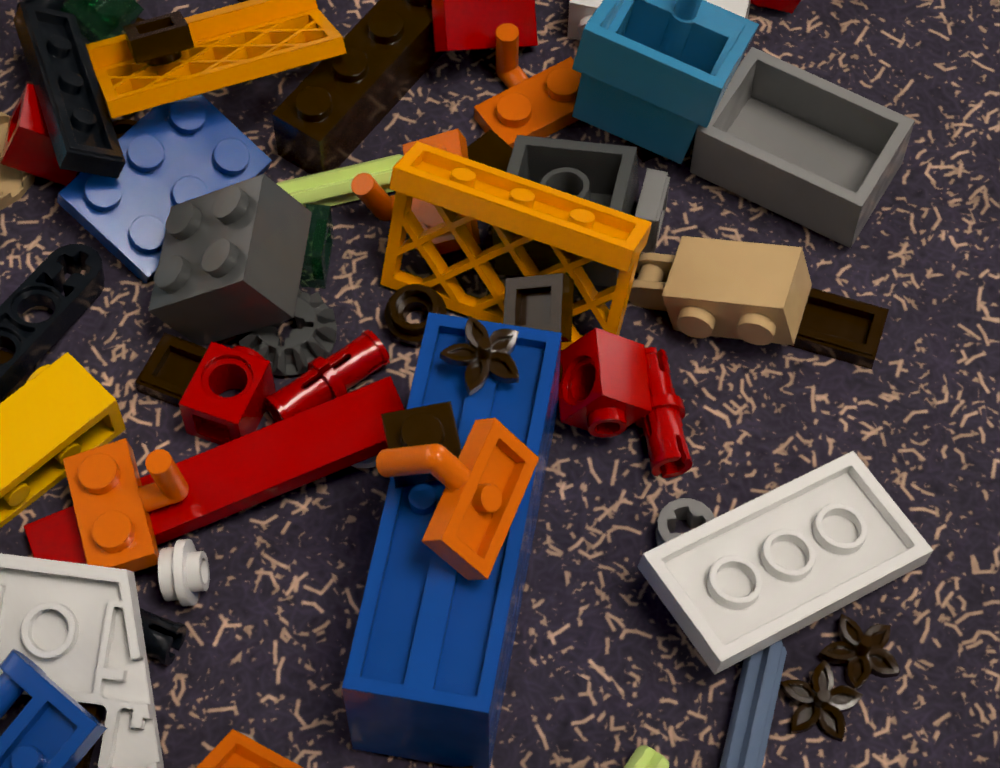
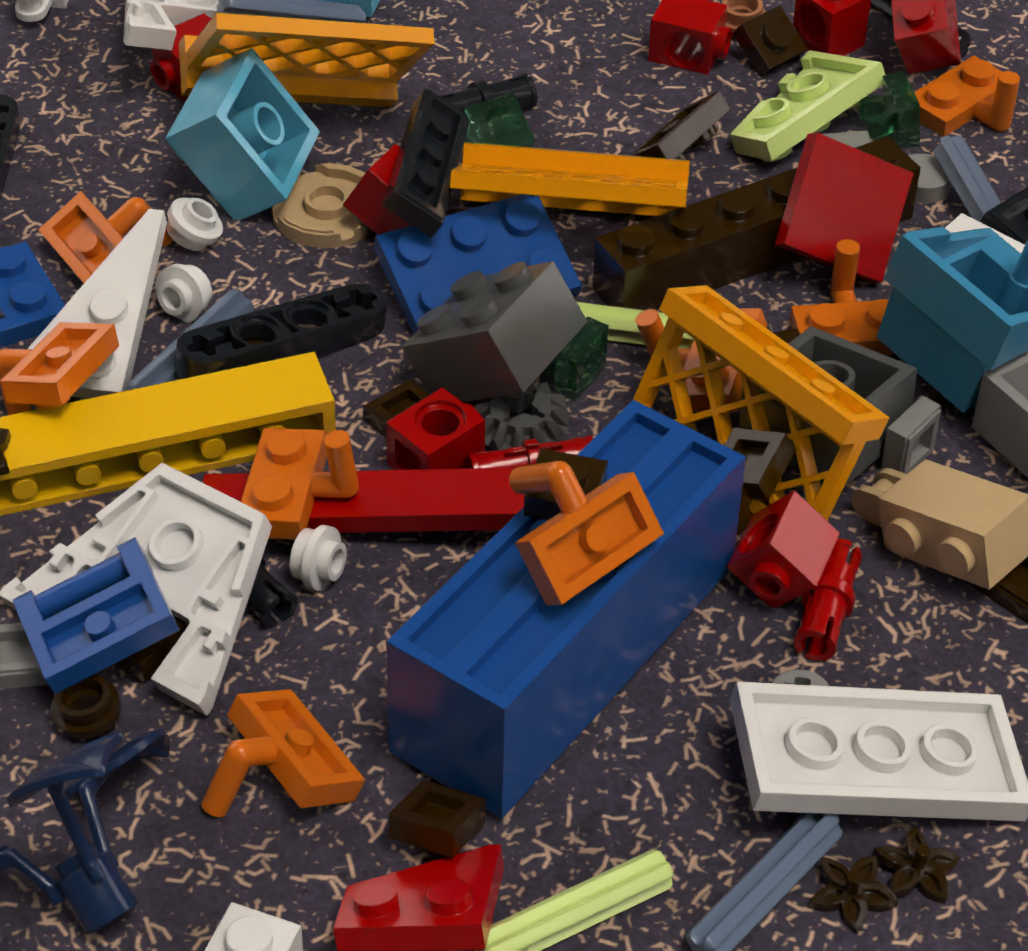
camera: 25 degrees right, 15 degrees down
(158, 39) = (527, 151): dark brown plate -> none
(484, 355) = (662, 443): dark brown plant -> none

